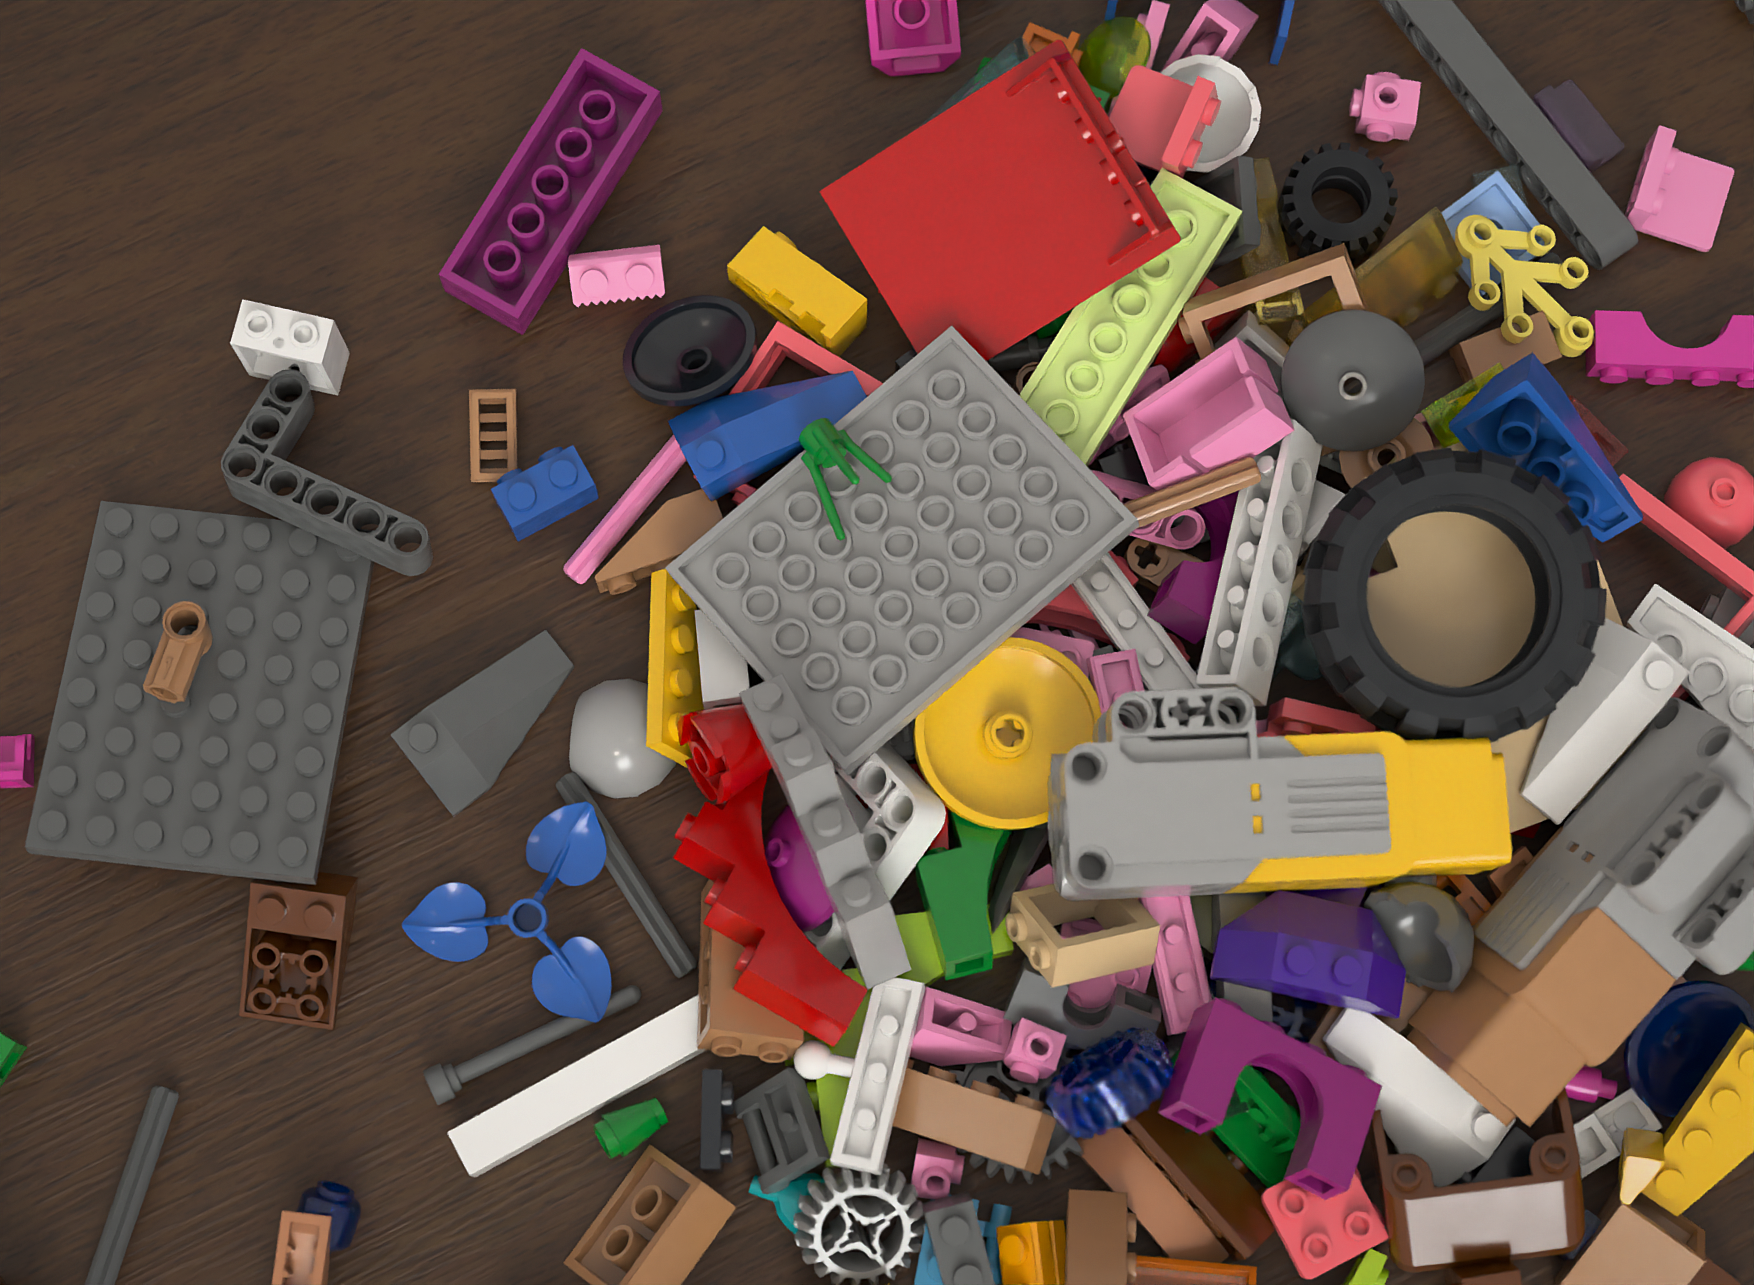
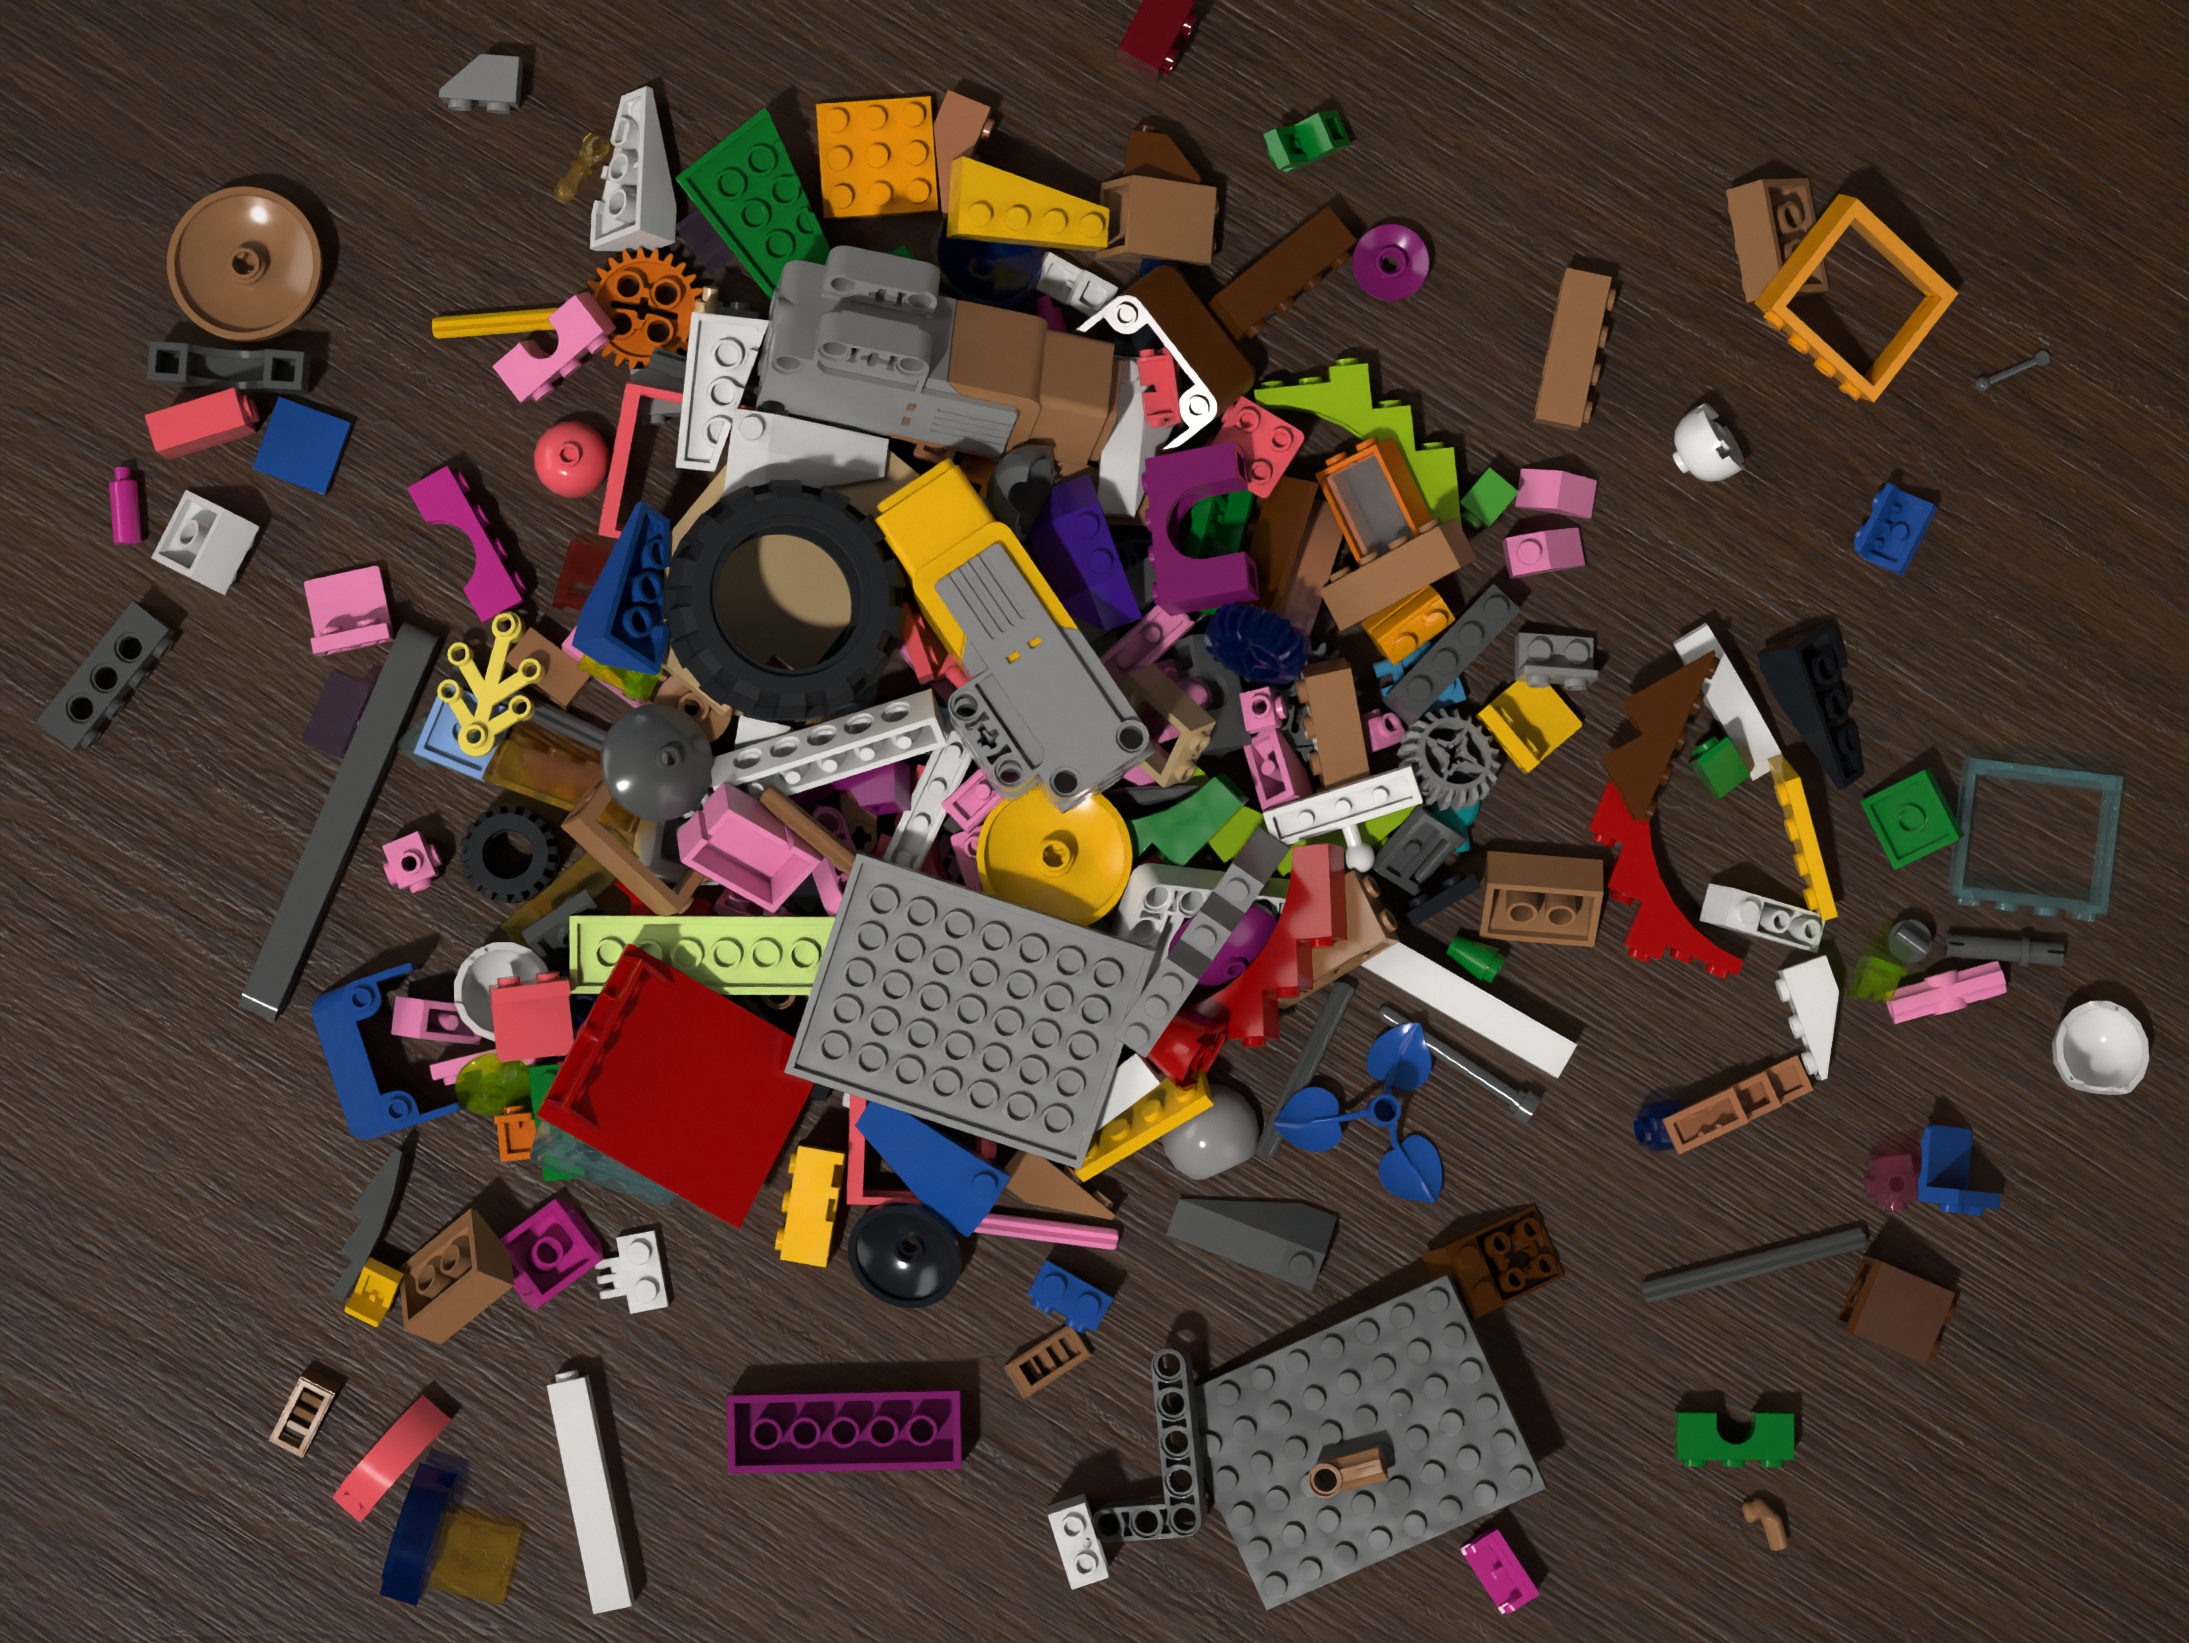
camera: 120 degrees left, 10 degrees up
(616, 275) = (879, 1343): bright pink brick -> none
(828, 448) = (930, 1106): green plant -> none
(837, 91) = (636, 1273): none -> white hinge
(1466, 1161) = (1162, 373): none -> coral hinge
(1639, 1161) = (1086, 255): yellow slope -> none

